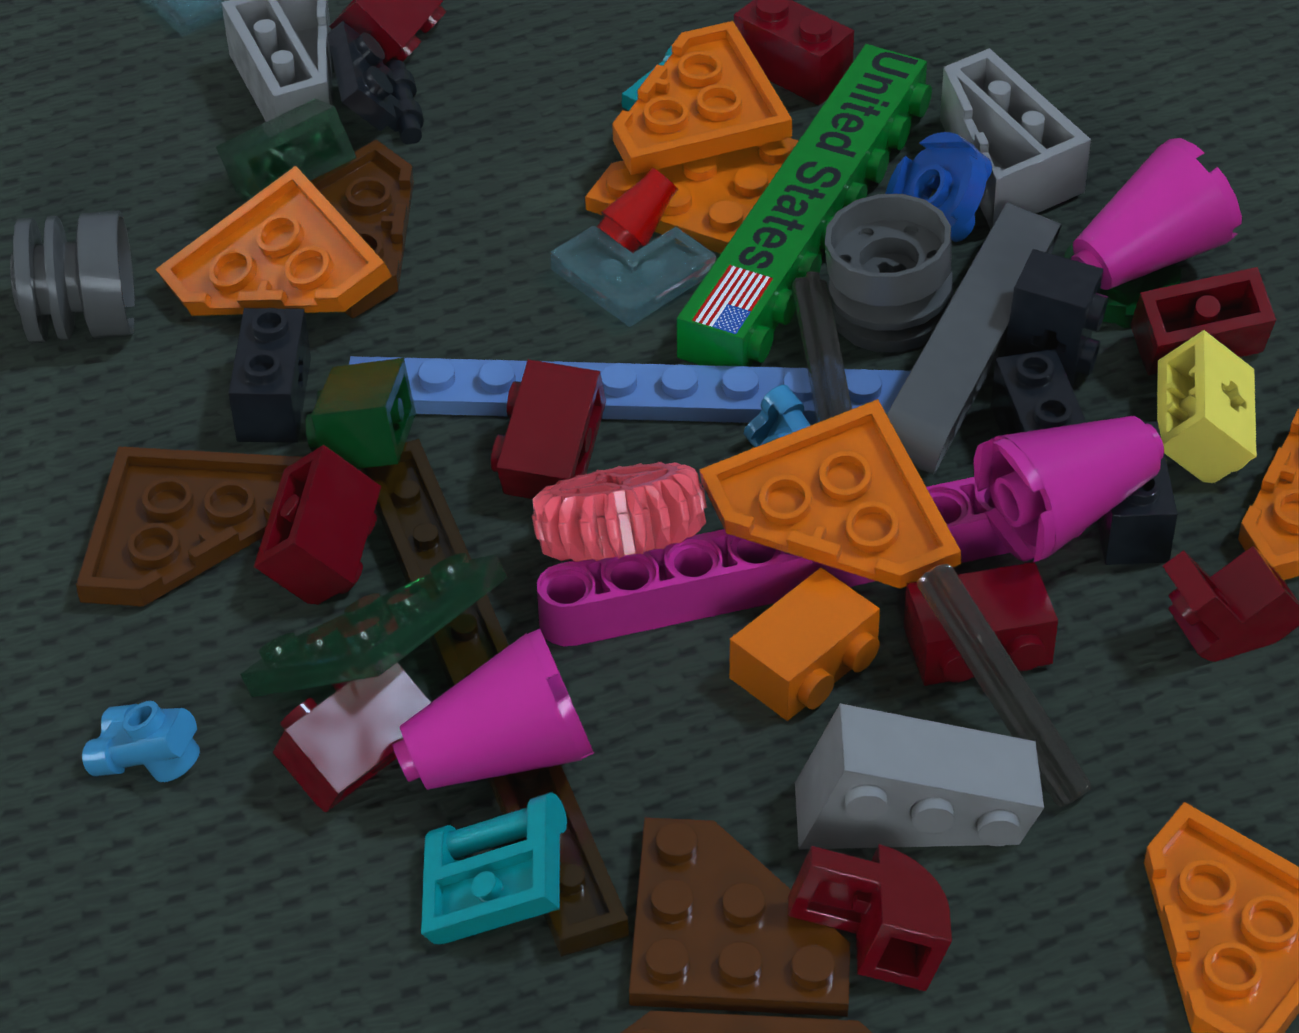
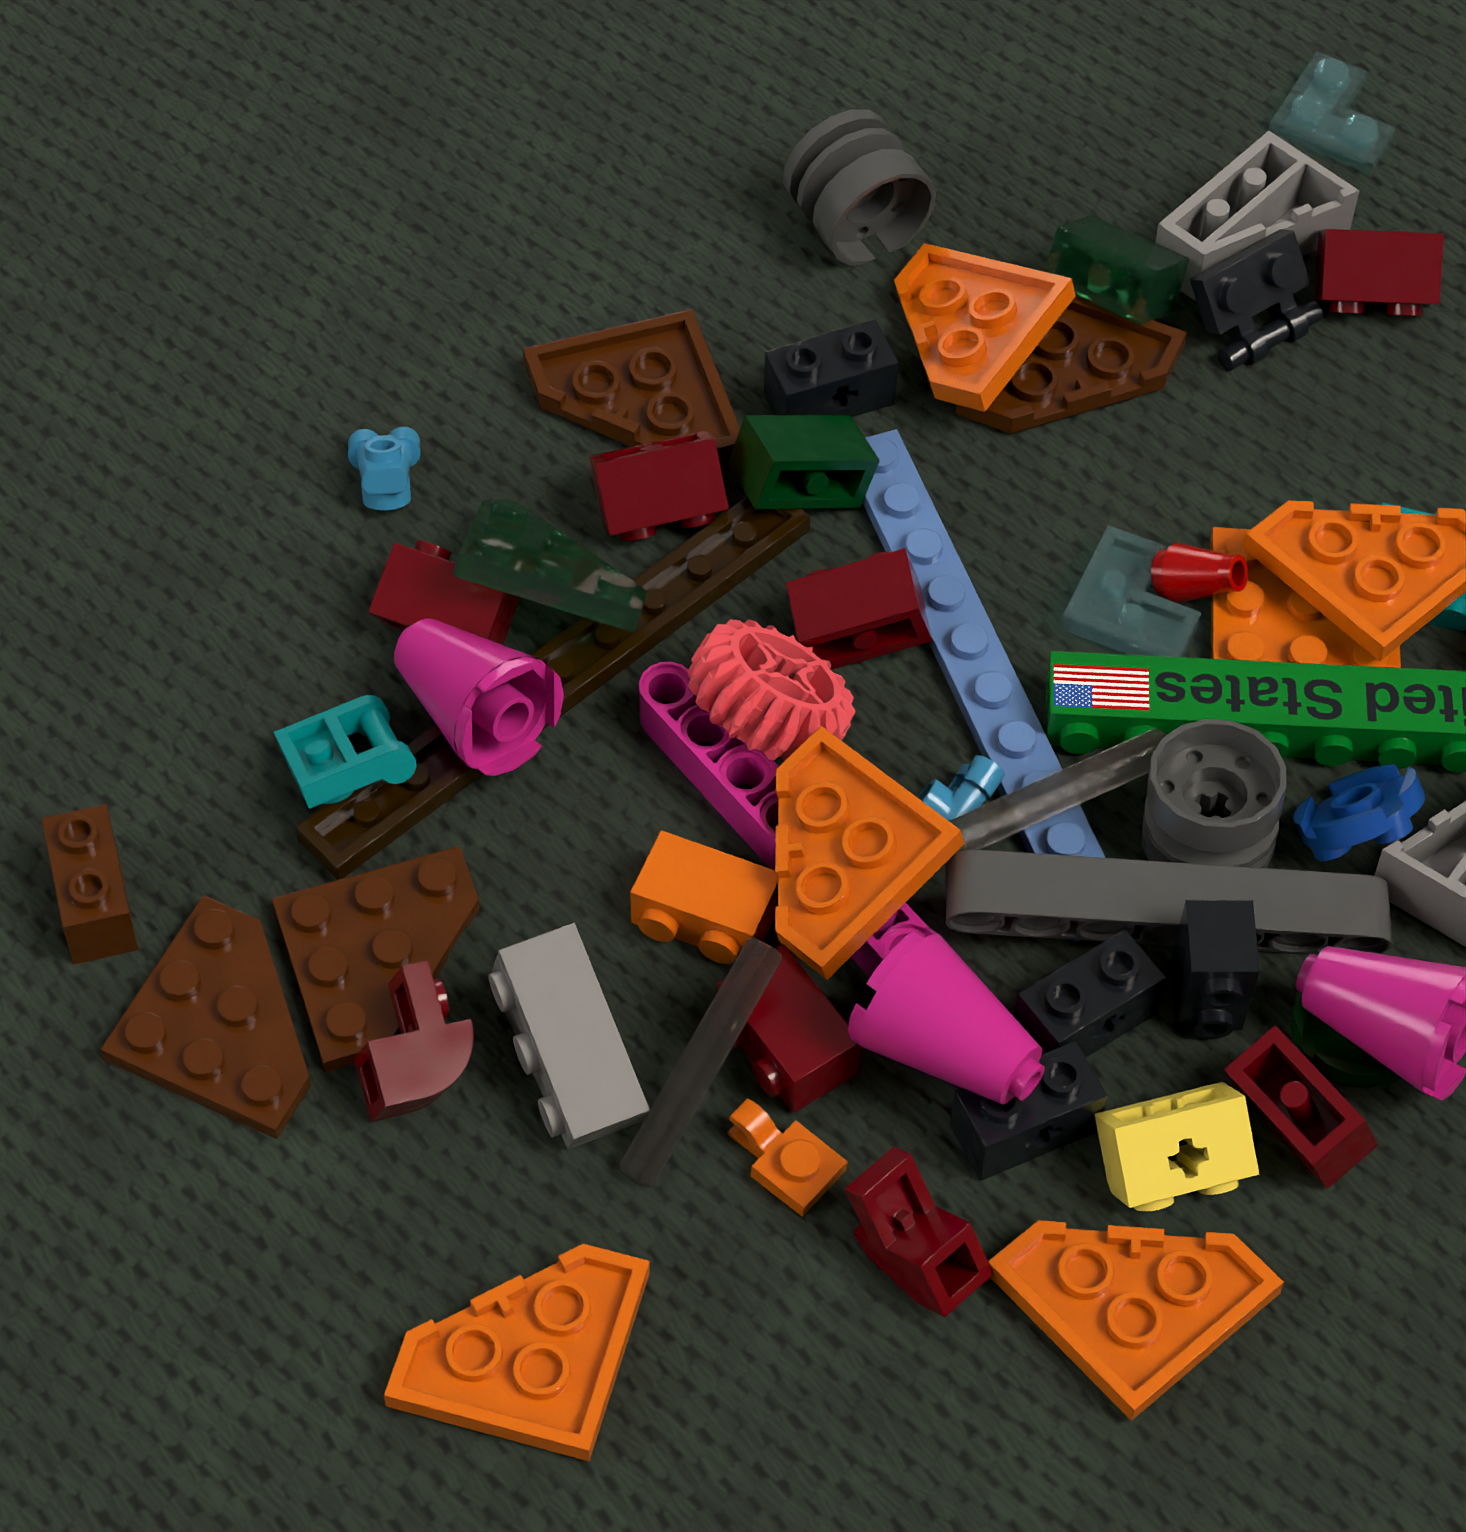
camera: 65 degrees right, 10 degrees up
(1104, 676) = (789, 1164): none -> orange plate

